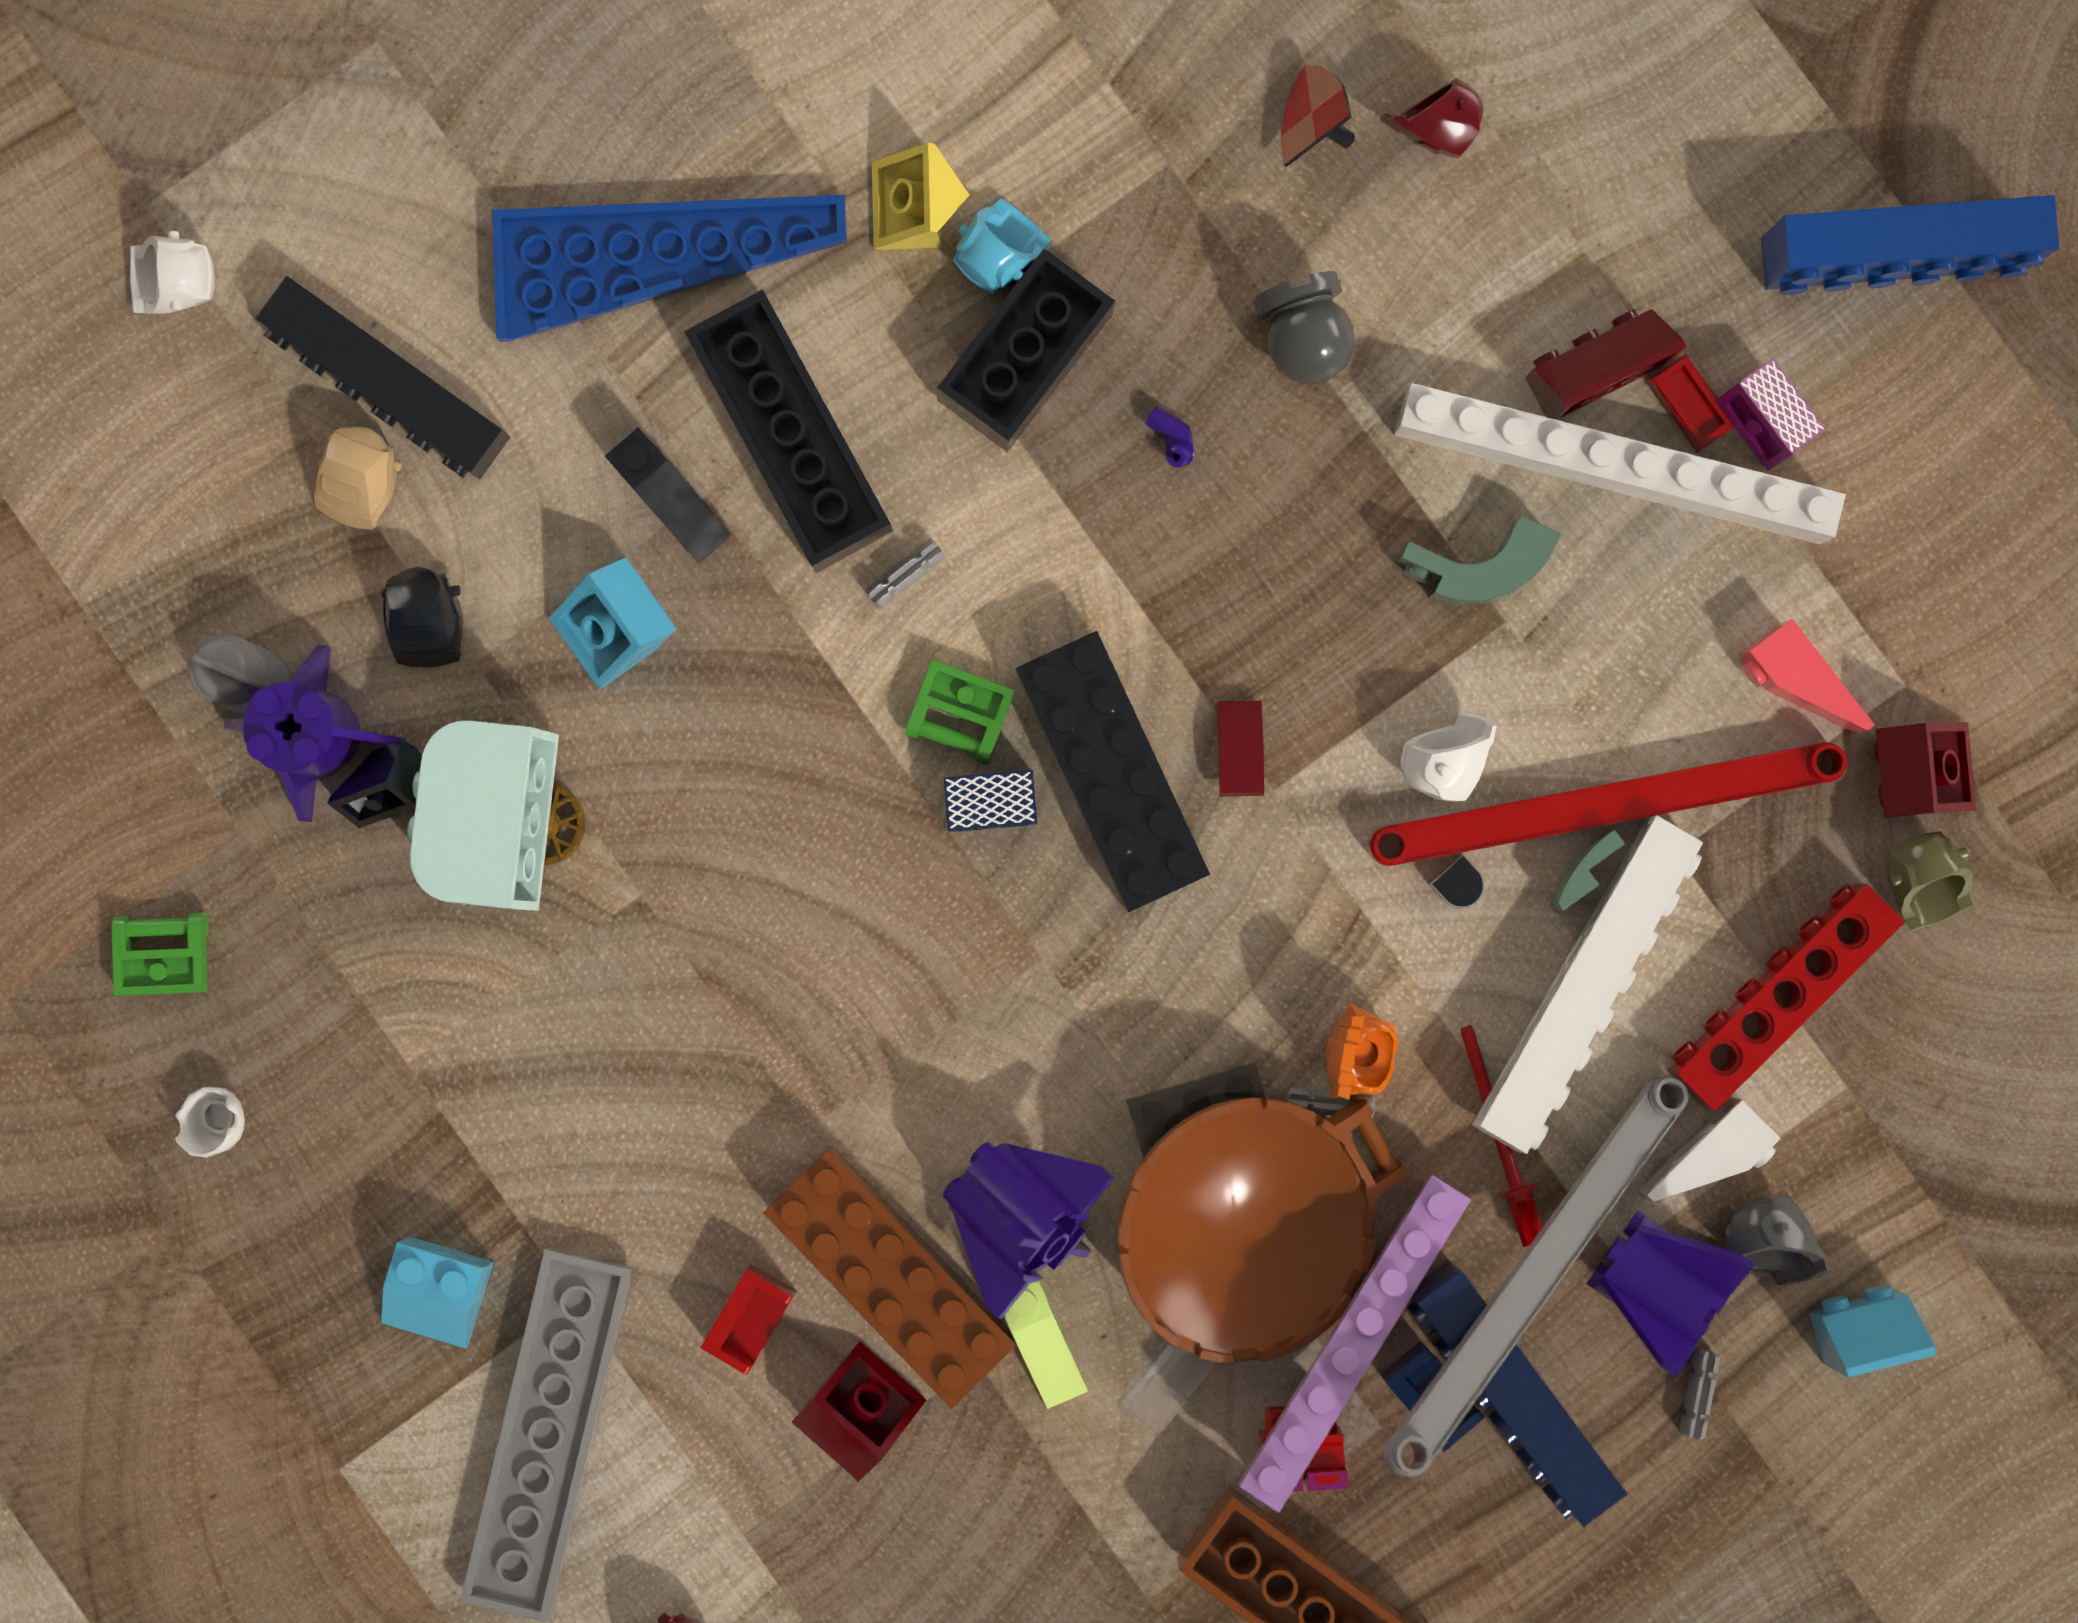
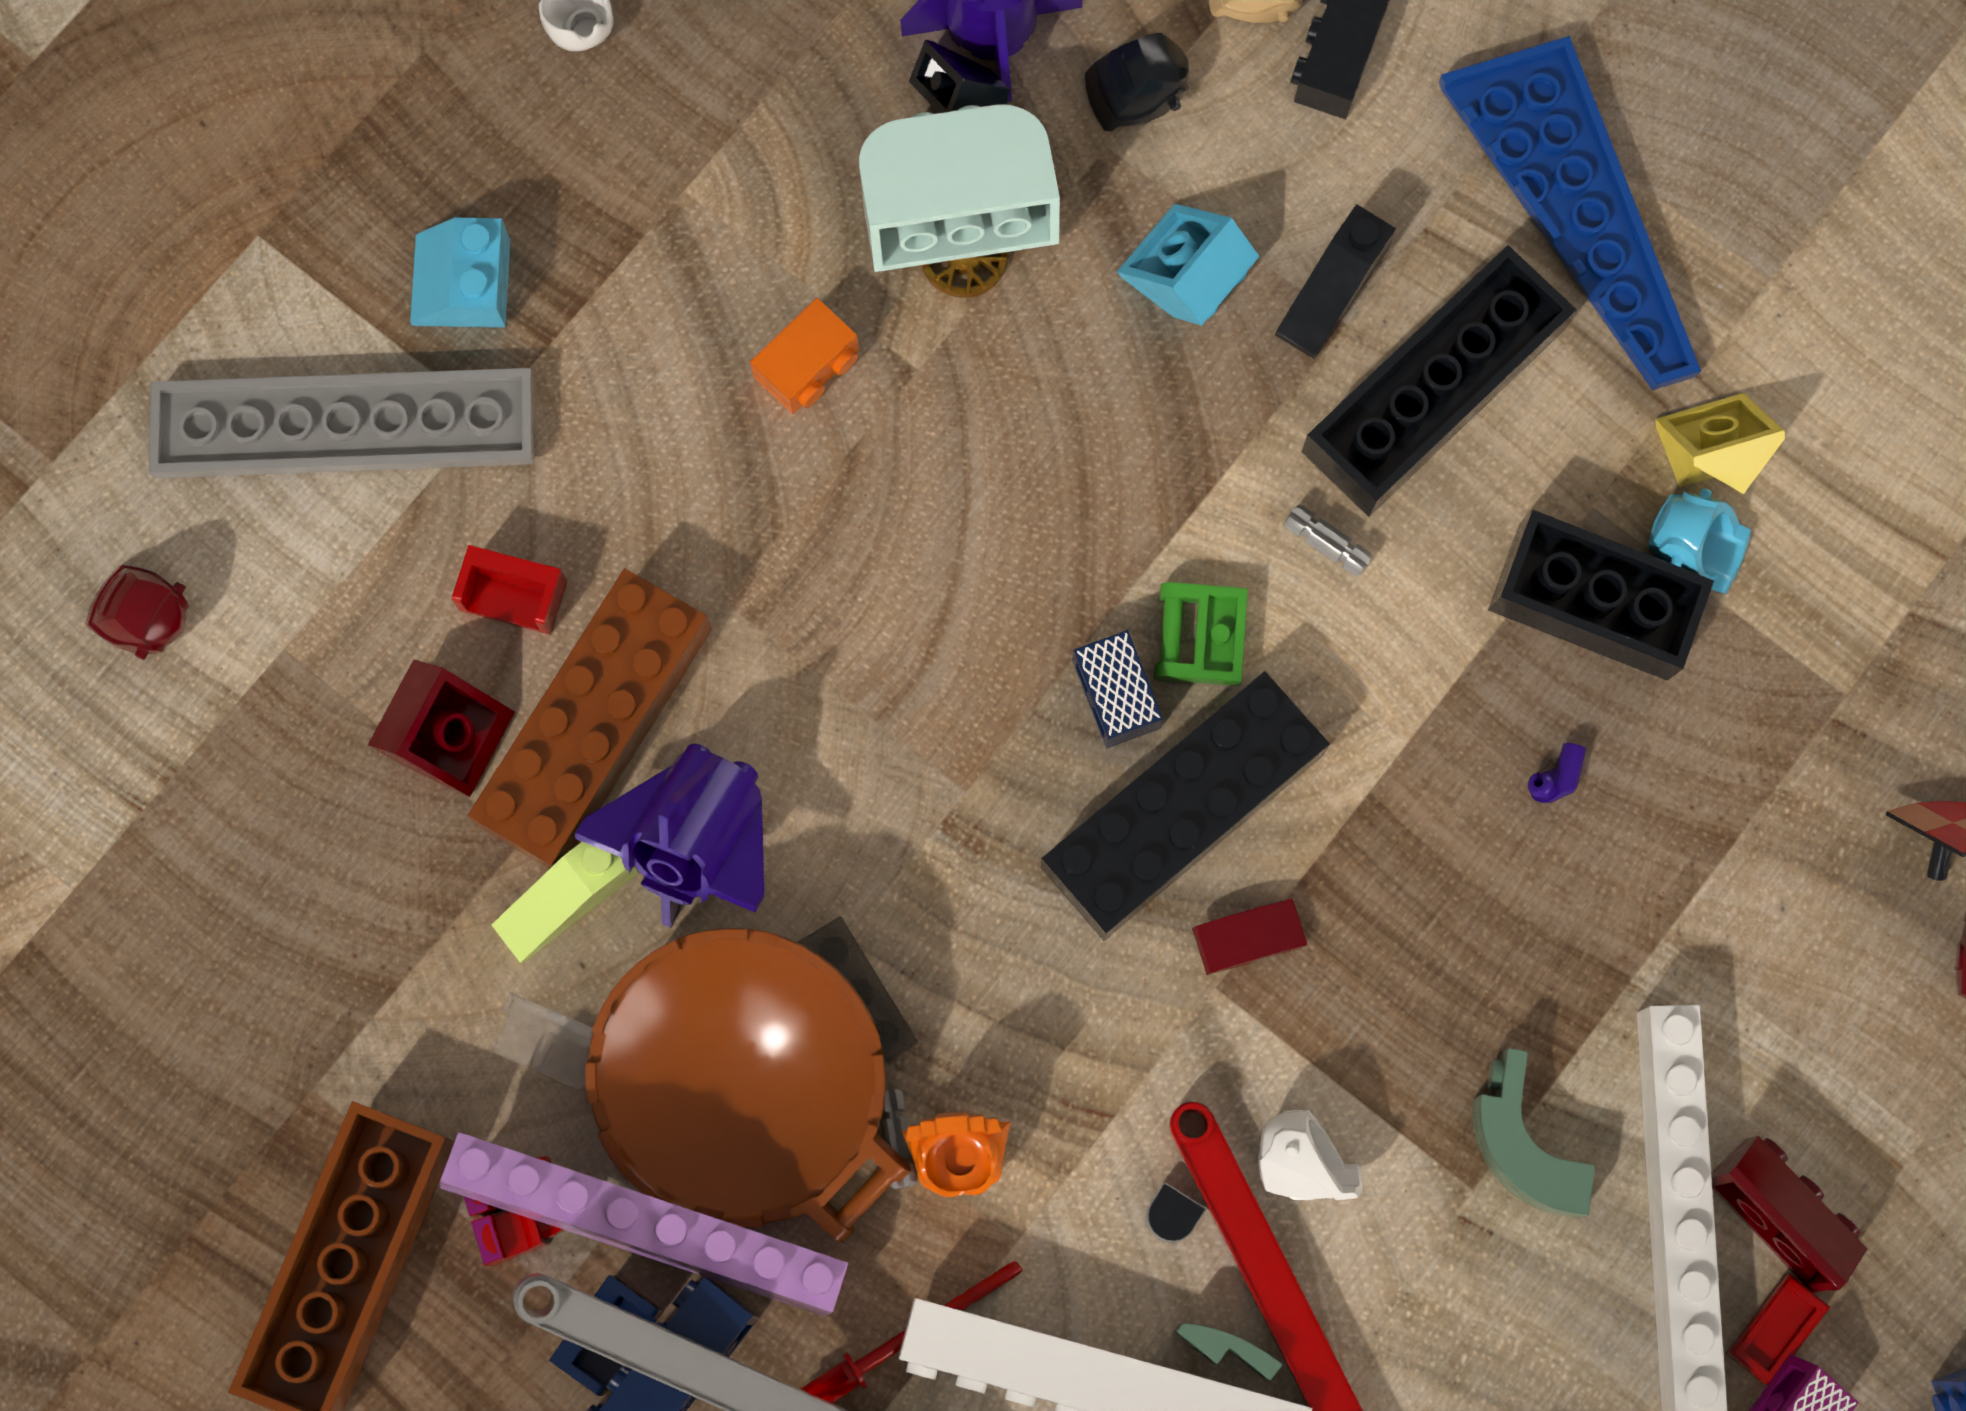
camera: 70 degrees right, 10 degrees down
(604, 994) = (806, 357): none -> orange brick
(1308, 331) = (1717, 882): dark grey tile -> none

